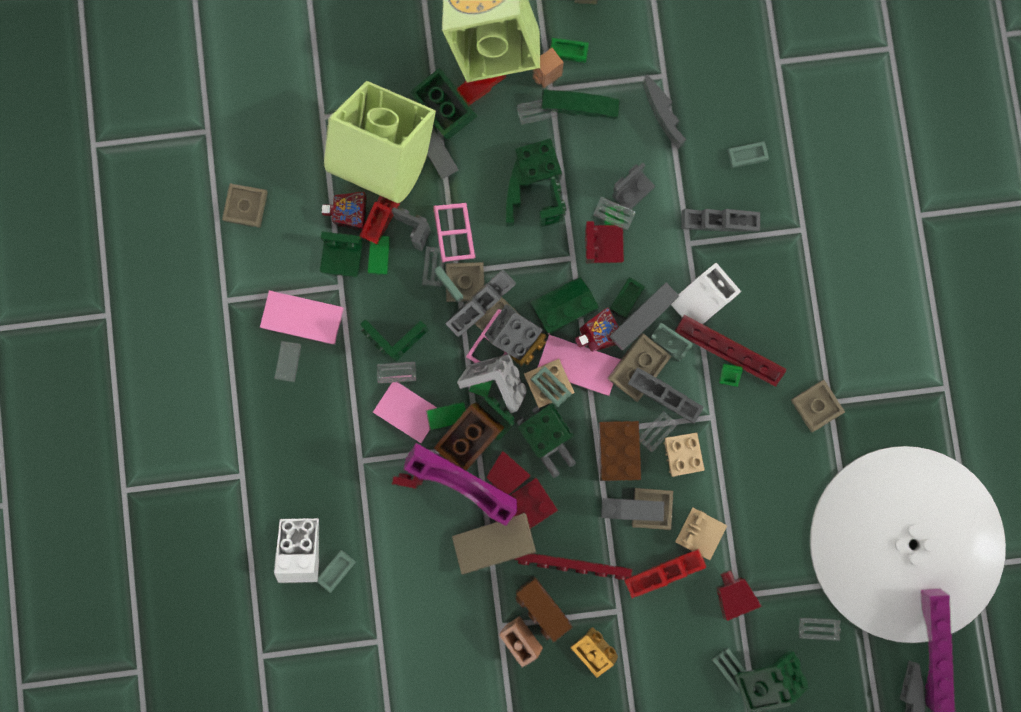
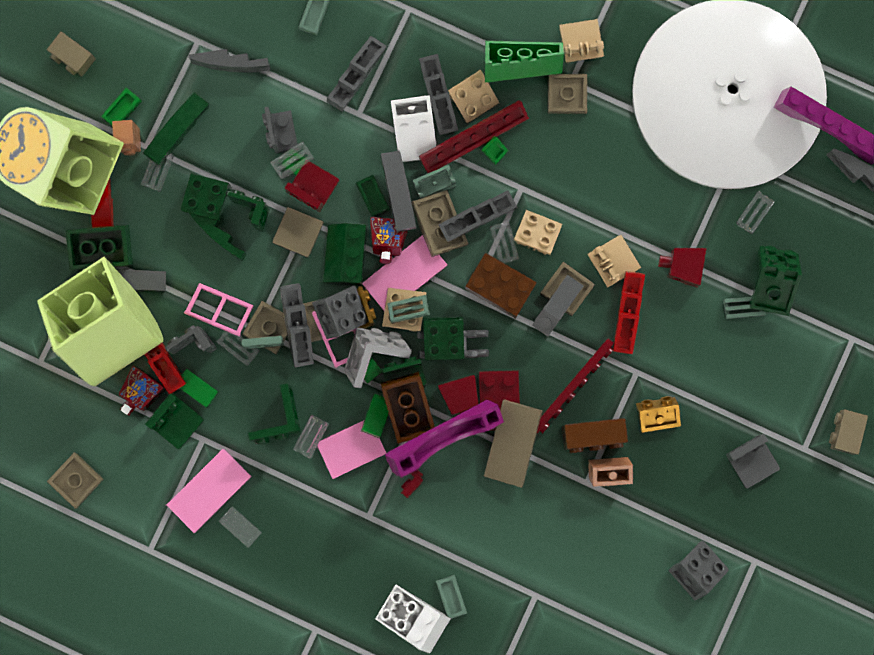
camera: 55 degrees left, 0 degrees up
(558, 256) = (298, 232): none -> dark tan tile
(747, 298) = (438, 93): none -> dark grey slope
(764, 329) = (473, 96): none -> tan hinge
(821, 349) = (521, 59): none -> green wedge
(870, 390) = (581, 40): none -> tan hinge

